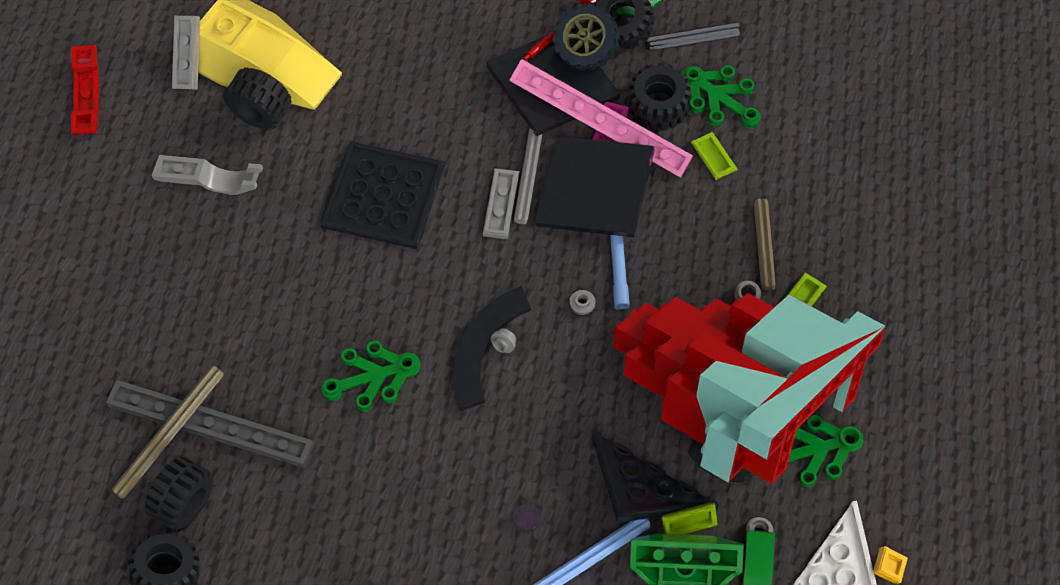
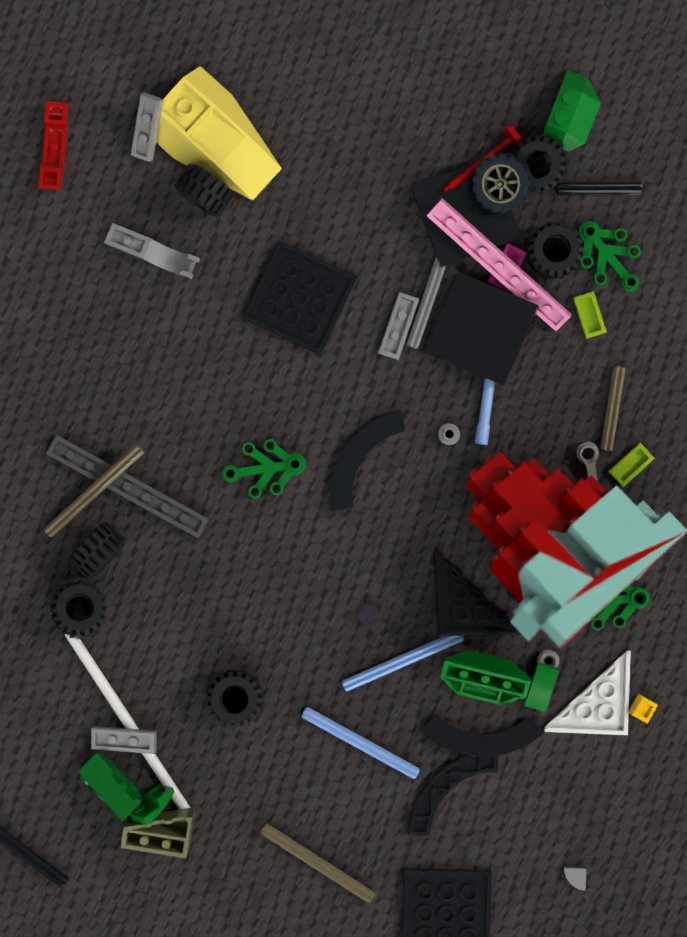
camera: 10 degrees right, 25 degrees up
(503, 340) = (377, 458): light grey plate -> none
(690, 519) = (495, 642): lime tile -> none

